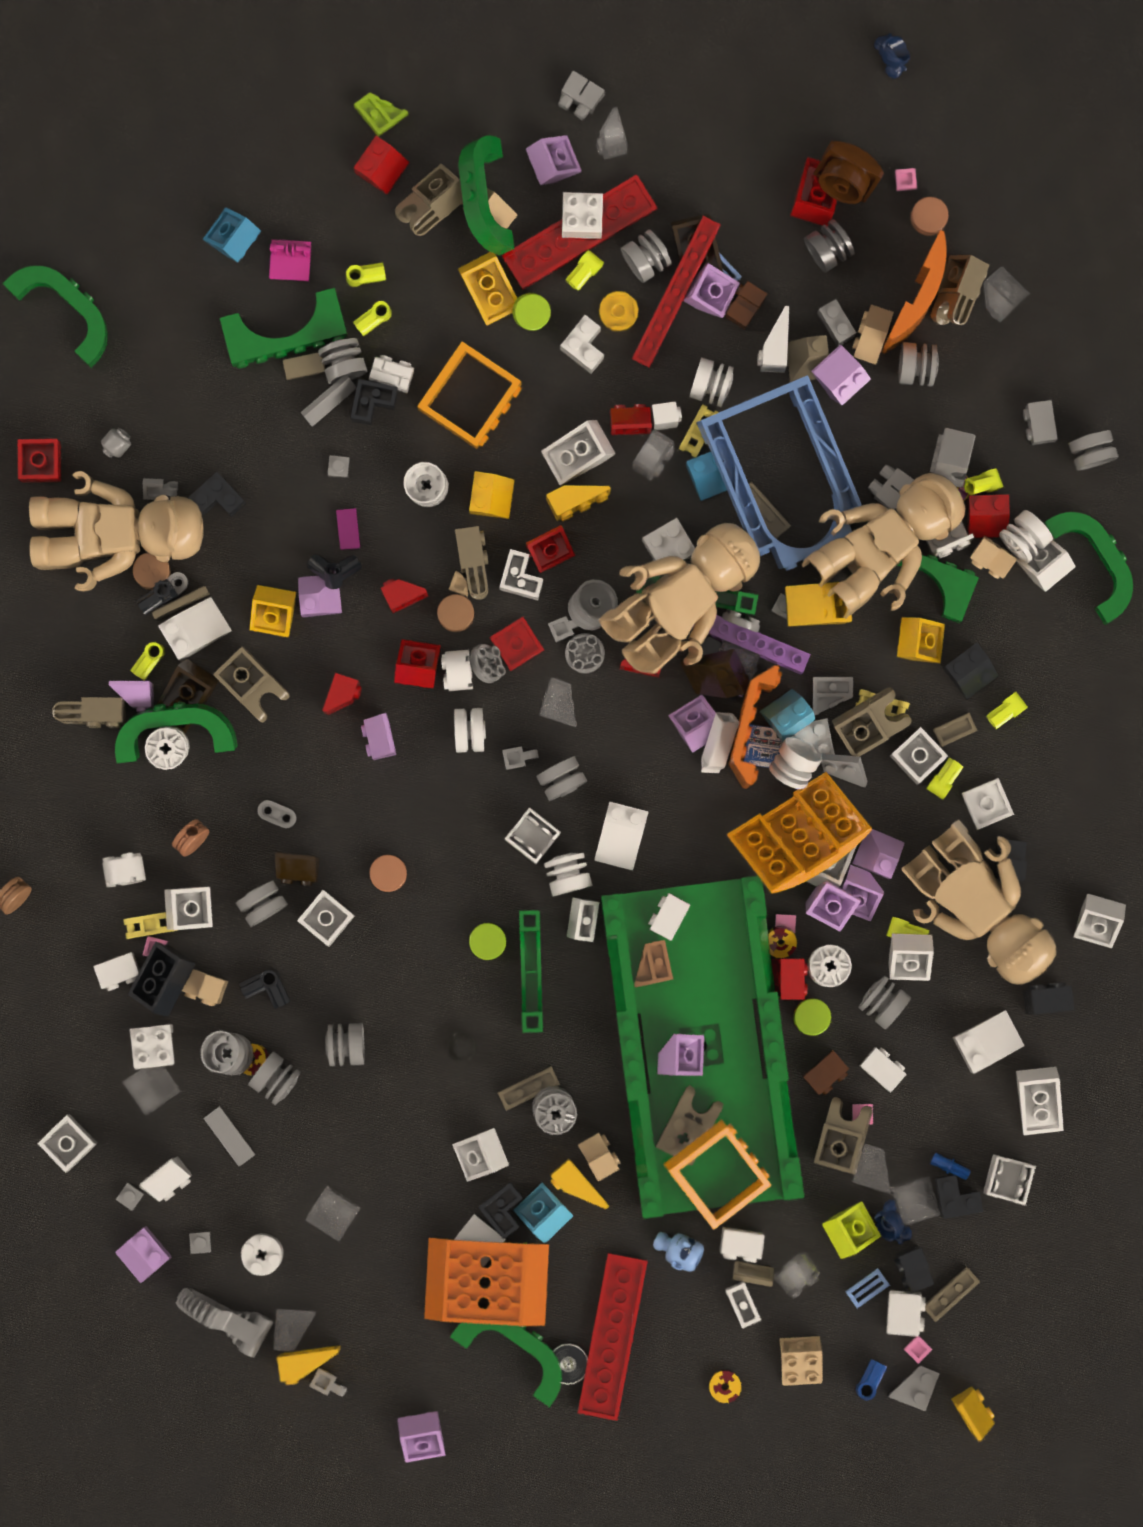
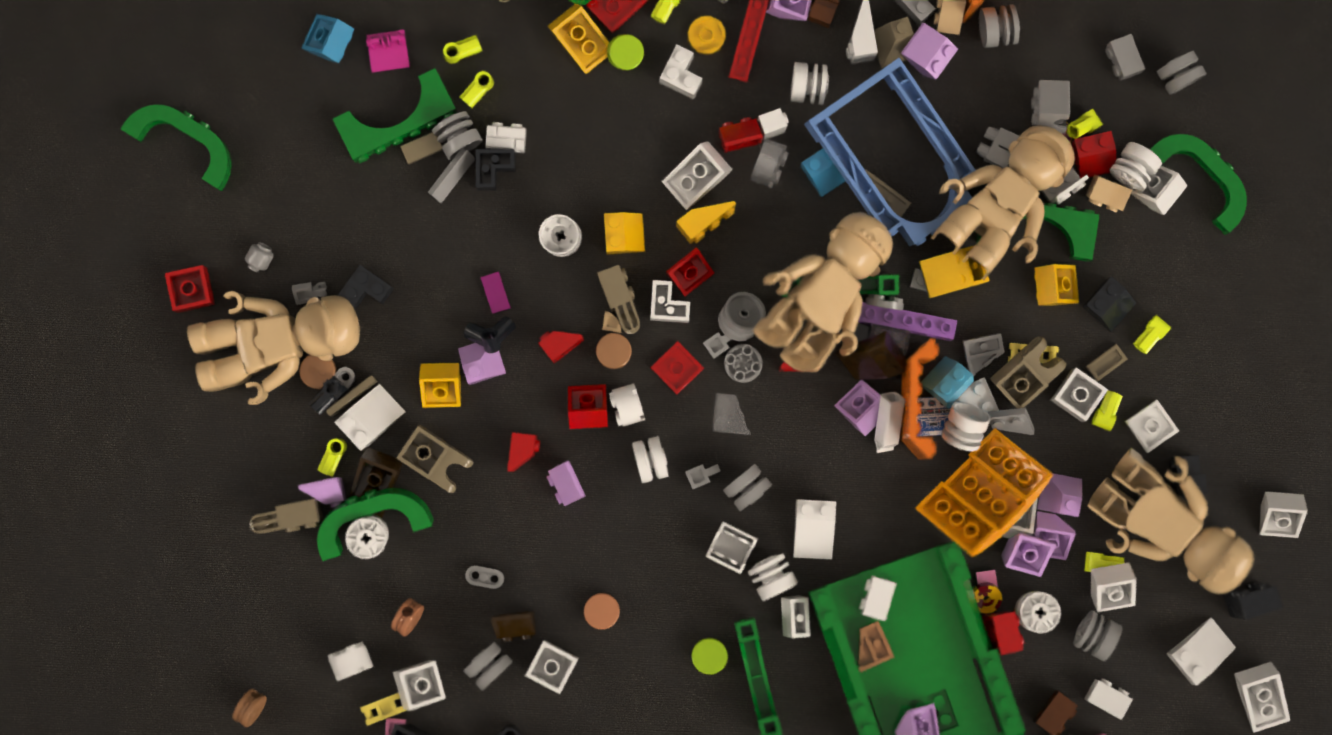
camera: 10 degrees left, 0 degrees up
(338, 466) = (474, 235): light grey plate -> none
(487, 663) = (653, 392): light grey tile -> none
(502, 407) = (556, 129): light orange window -> none
(669, 541) = (801, 242): white brick -> none
(695, 433) = (803, 134): light yellow plate -> none
(812, 1016) = (1031, 663): lime head -> none

